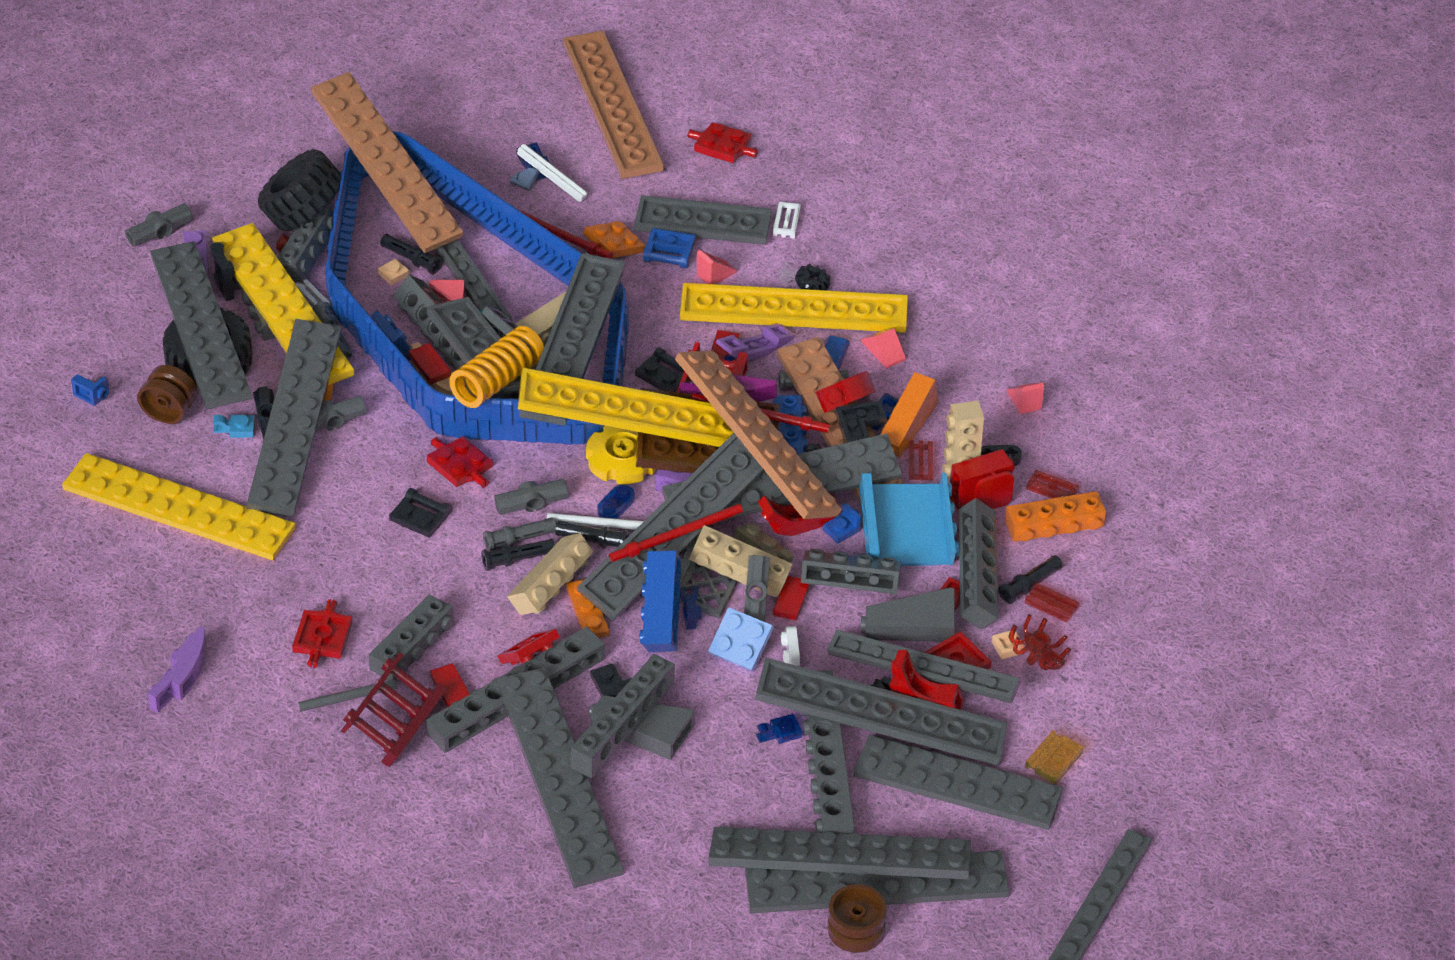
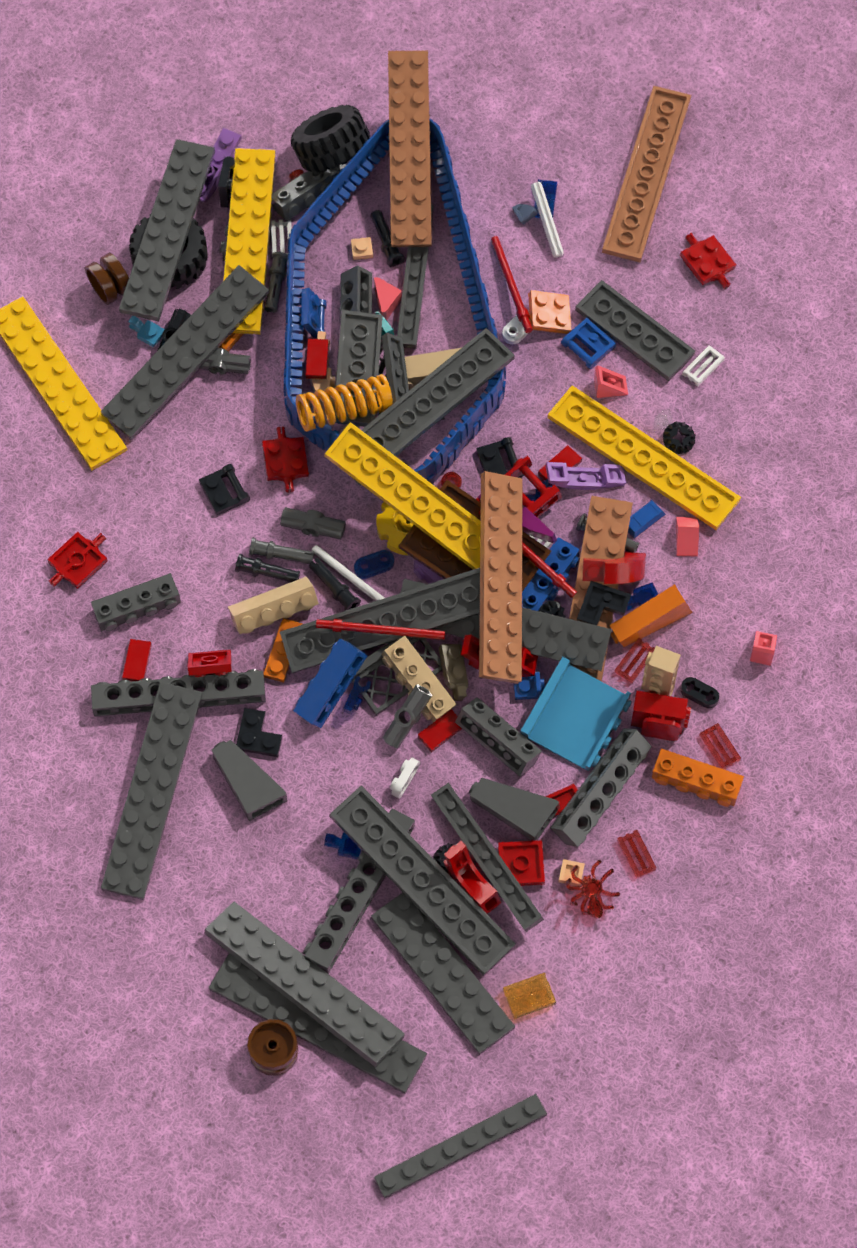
camera: 35 degrees right, 20 degrees up
(90, 391) = (64, 243): blue bracket -> none
(158, 225) = (216, 107): dark grey piece -> none
(341, 696) = (60, 624): dark grey bar -> none
(403, 730) = (73, 682): dark red fence -> none
(622, 716) = (224, 771): dark grey brick -> none
(741, 639) = (371, 748): light blue plate -> none
(1022, 583) = (625, 823): black pin -> none

